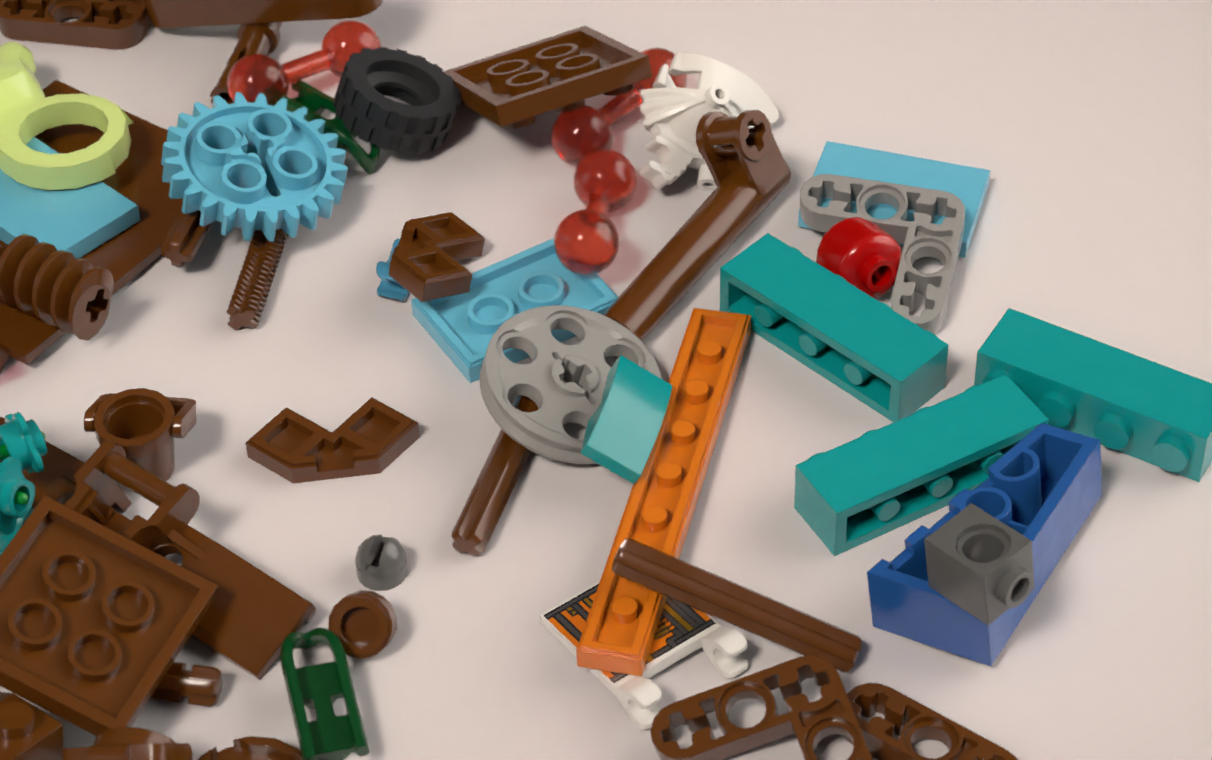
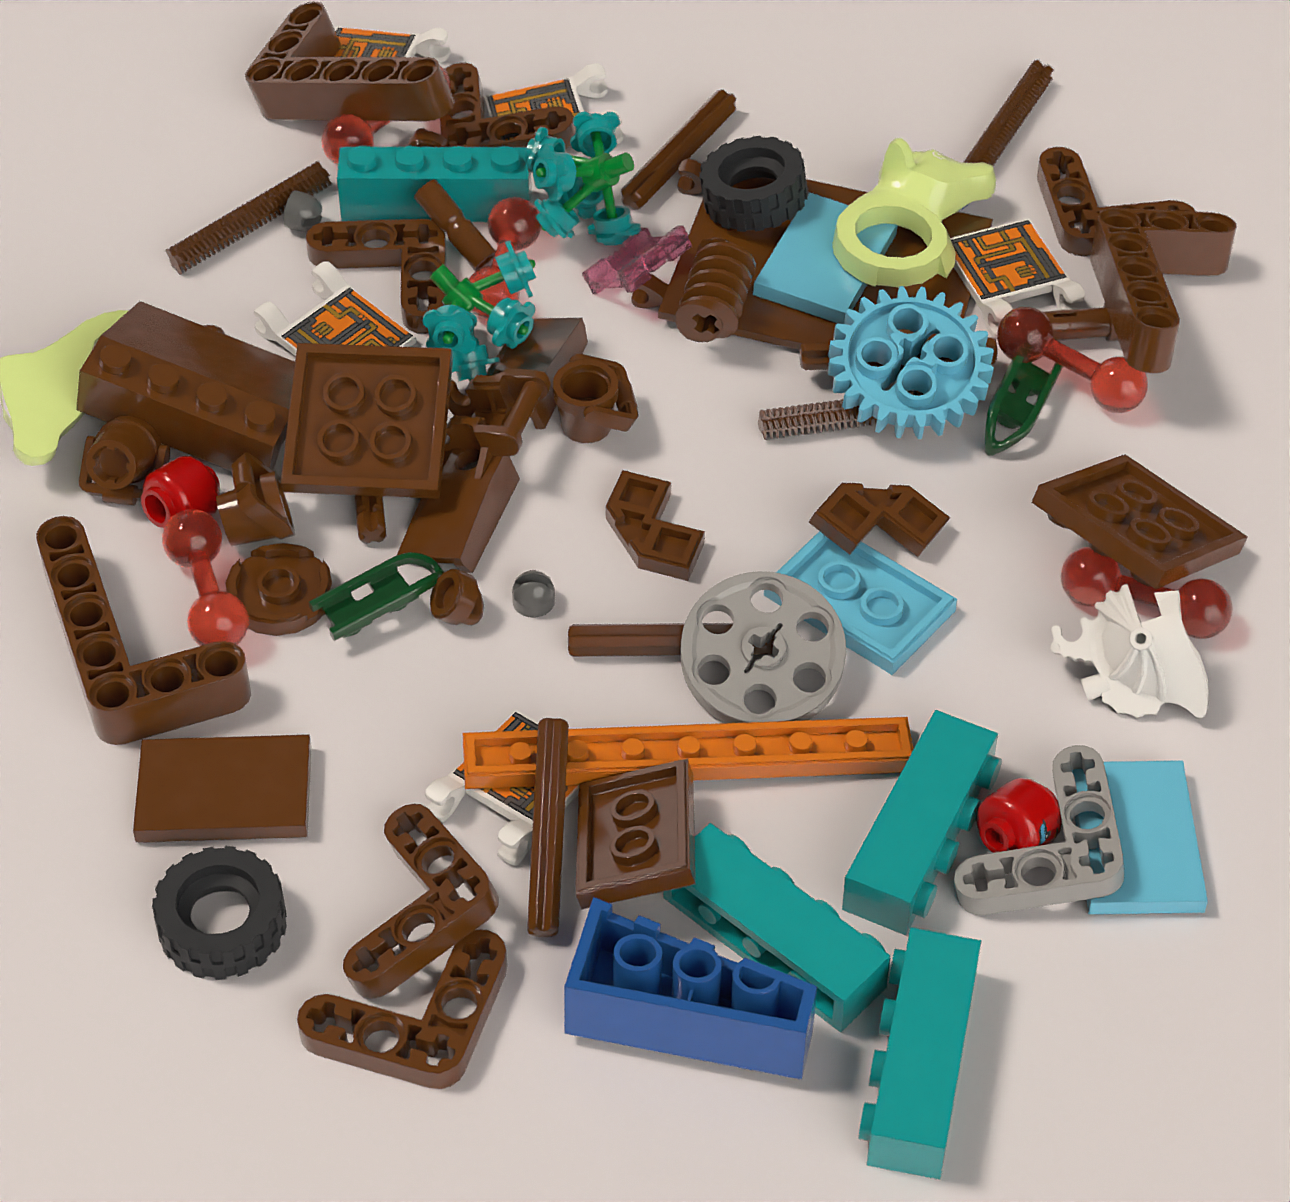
camera: 70 degrees right, 5 degrees up
(150, 79) = (1009, 266): none -> flag
(390, 124) = (1076, 401): black tyre -> none
(587, 239) = (929, 607): clear red piece -> none
(627, 419) = (721, 693): teal slope -> none
(747, 179) = (1083, 713): reddish brown axle -> none
(785, 529) = (636, 834): none -> reddish brown tile
(980, 564) = (592, 958): dark grey brick -> none

